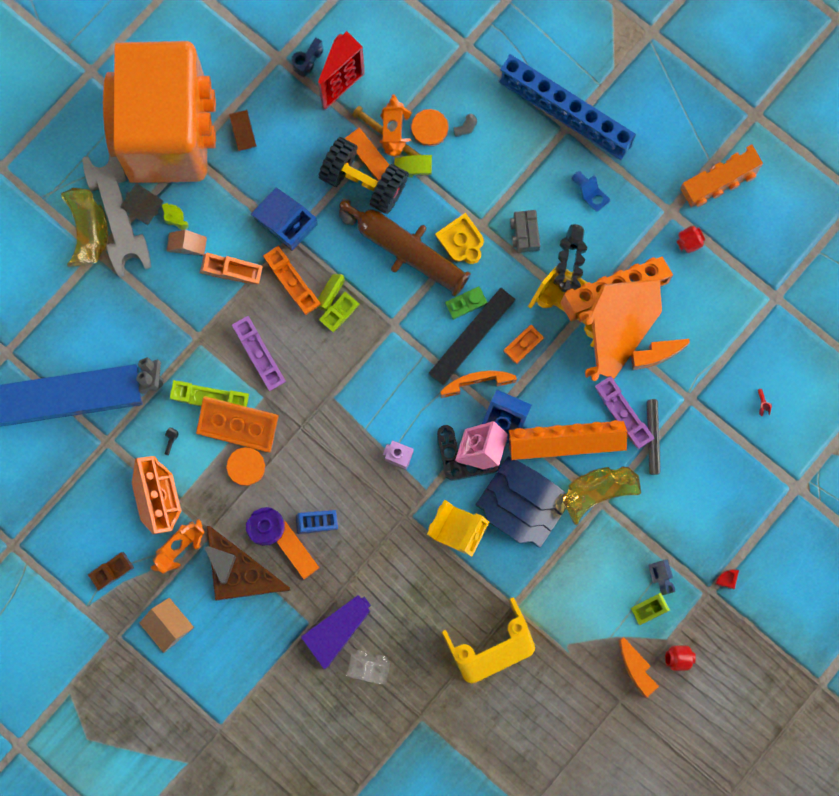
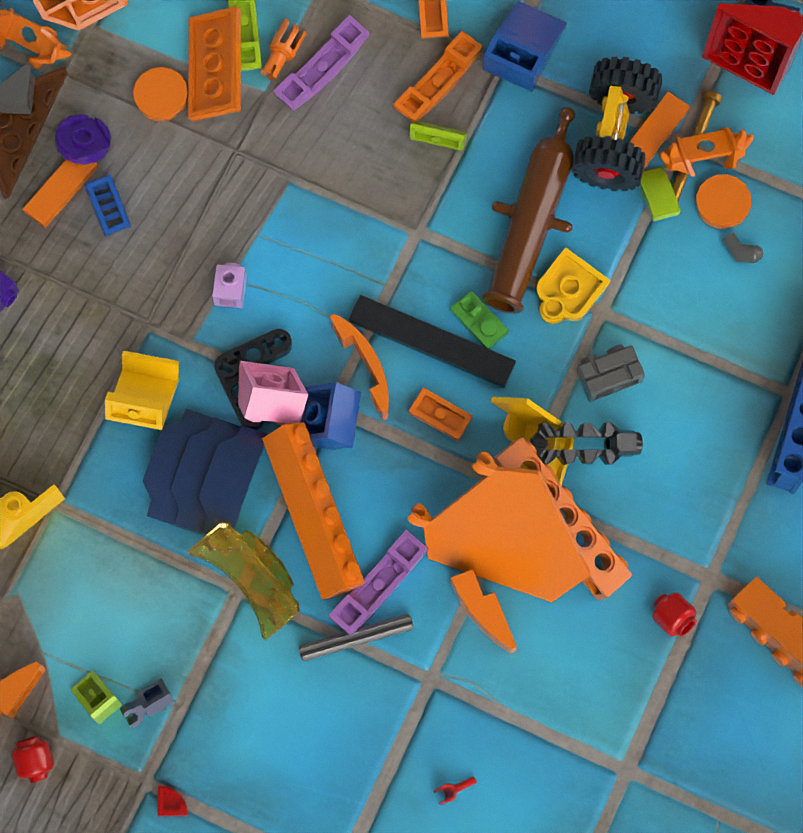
camera: 75 degrees right, 5 degrees down
(238, 376) = (281, 50): none -> orange arm
(339, 312) = (412, 154): lime slope -> none
(346, 217) = (551, 125): dark grey arm -> none
(589, 190) = (703, 448): blue bracket -> none

